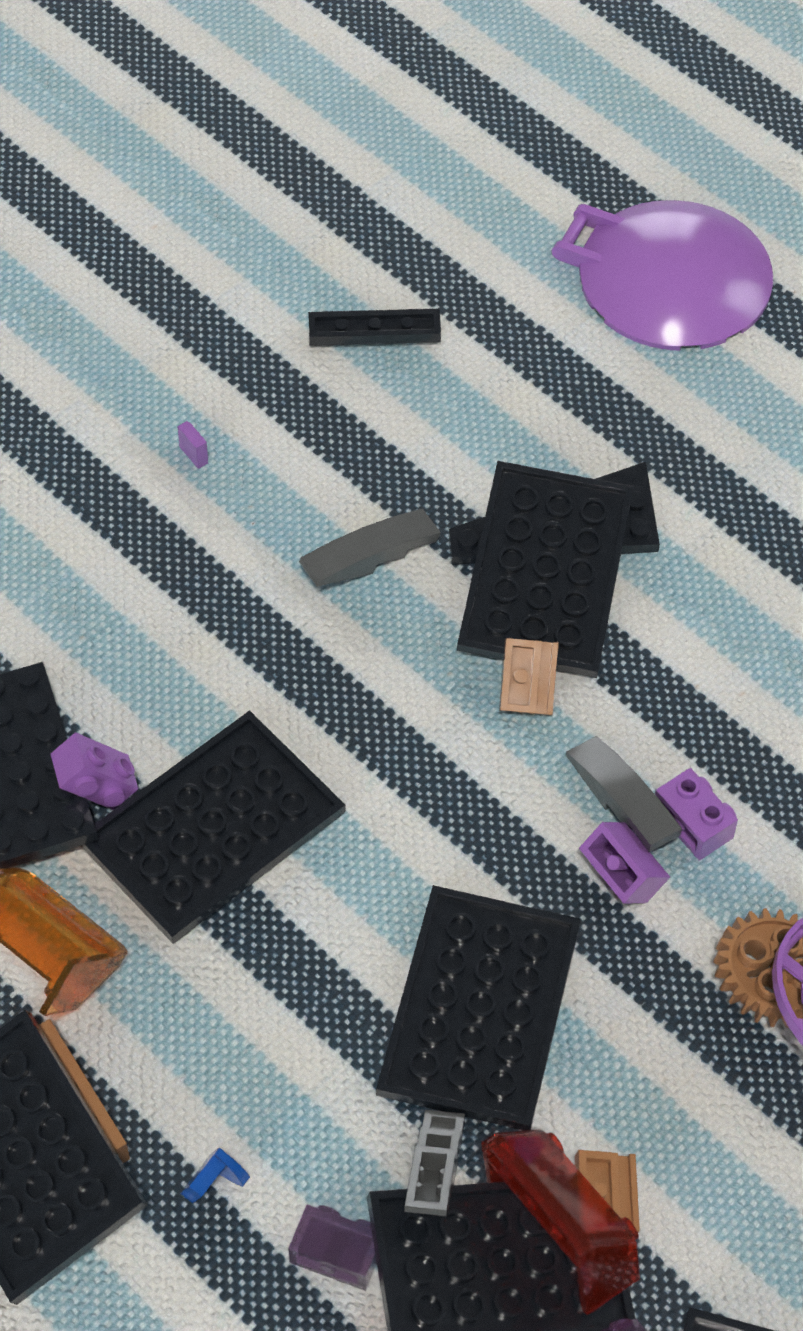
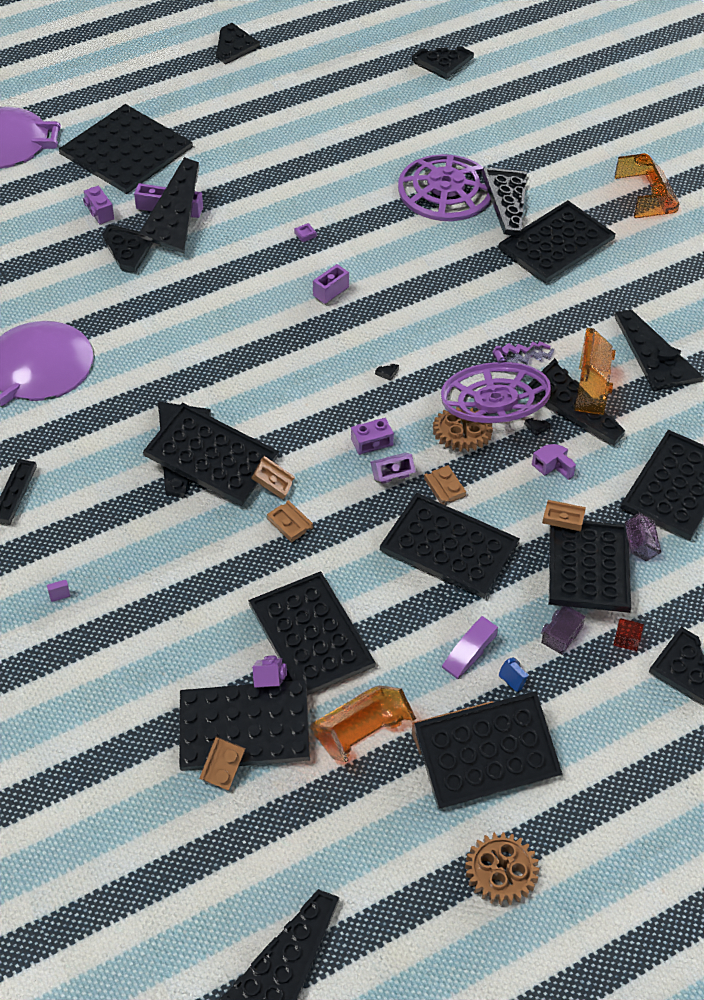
camera: 75 degrees left, 5 degrees down
(249, 1089) = (470, 647): none -> medium lavender slope
(364, 548) = (164, 525): dark grey slope -> none
(435, 1163) = (538, 573): dark grey slope -> none
(446, 731) = (289, 521): none -> medium nougat plate
(568, 1210) = (573, 522): clear red windscreen -> none
(624, 792) = (350, 458): dark grey slope -> none
(628, 970) = (445, 485): none -> medium nougat plate
(762, 1147) = (553, 457): none -> medium lavender brick

